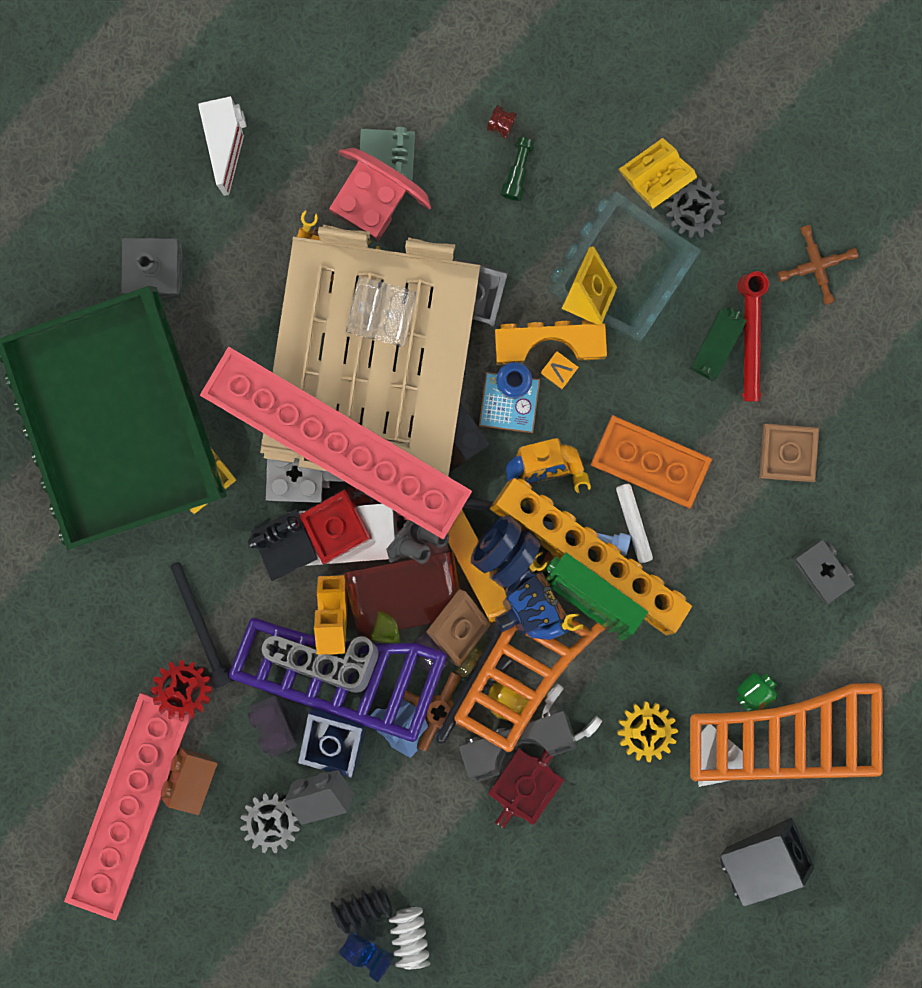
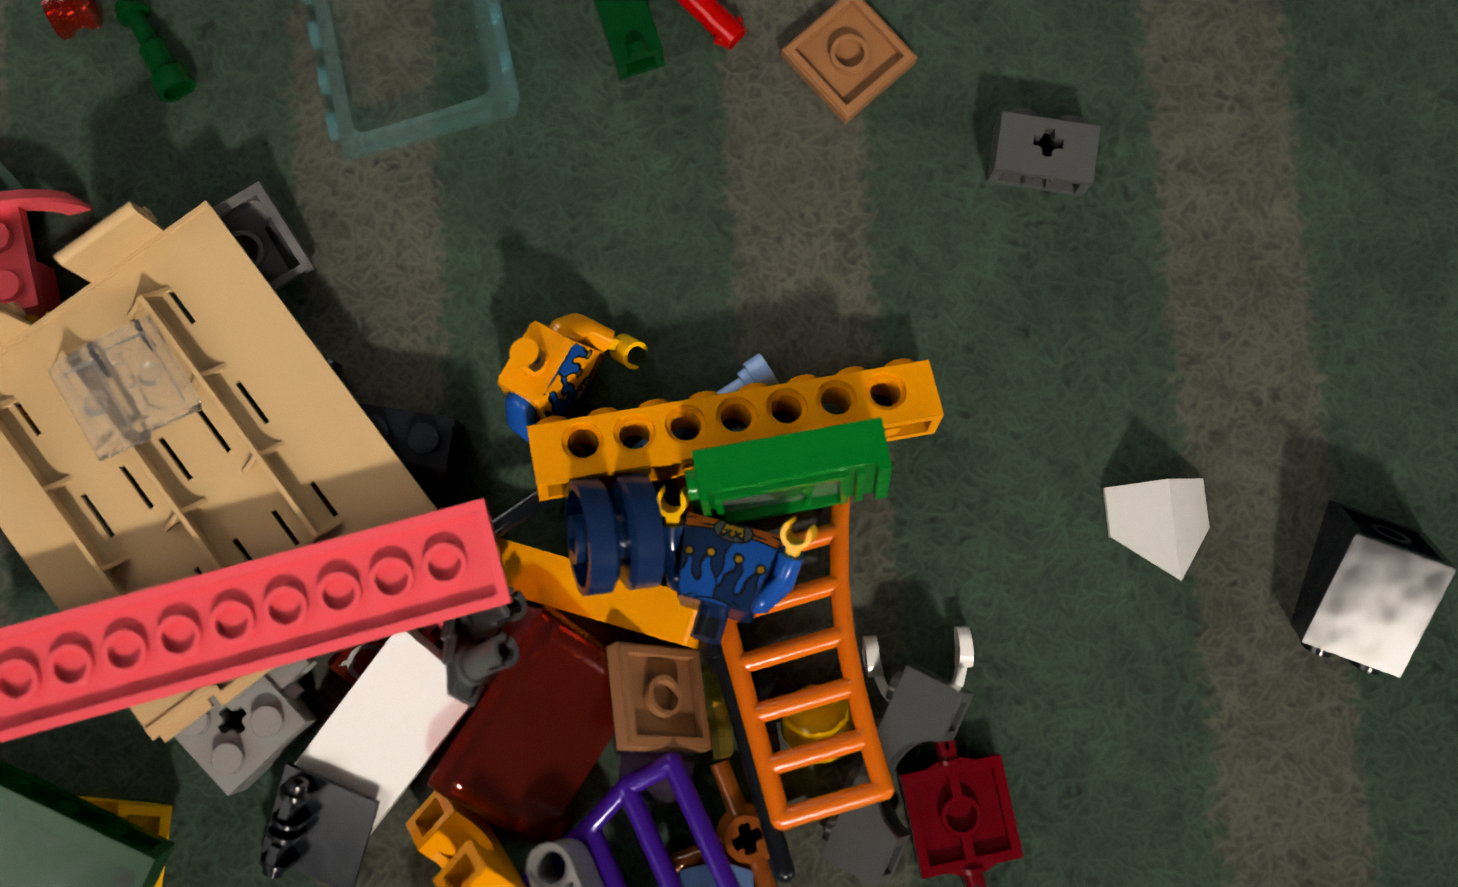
camera: 45 degrees left, 5 degrees down
(335, 526) = (359, 734): red tile -> none
(385, 629) = (563, 801): clear neon green tile -> none
(506, 413) = (434, 345): medium azure tile -> none
(514, 380) = (404, 306): blue head -> none
(559, 370) = (457, 241): light orange tile -> none
(585, 340) = (446, 171): light orange arch -> none
(591, 289) = (387, 97): yellow slope -> none
(634, 523) = (748, 334): white axle -> none
(635, 731) = (1054, 563): yellow gear -> none
(651, 462) = (690, 238): orange tile -> none
(757, 692) = (1123, 386): green head -> none
(799, 710) = (1176, 390): orange bar -> none

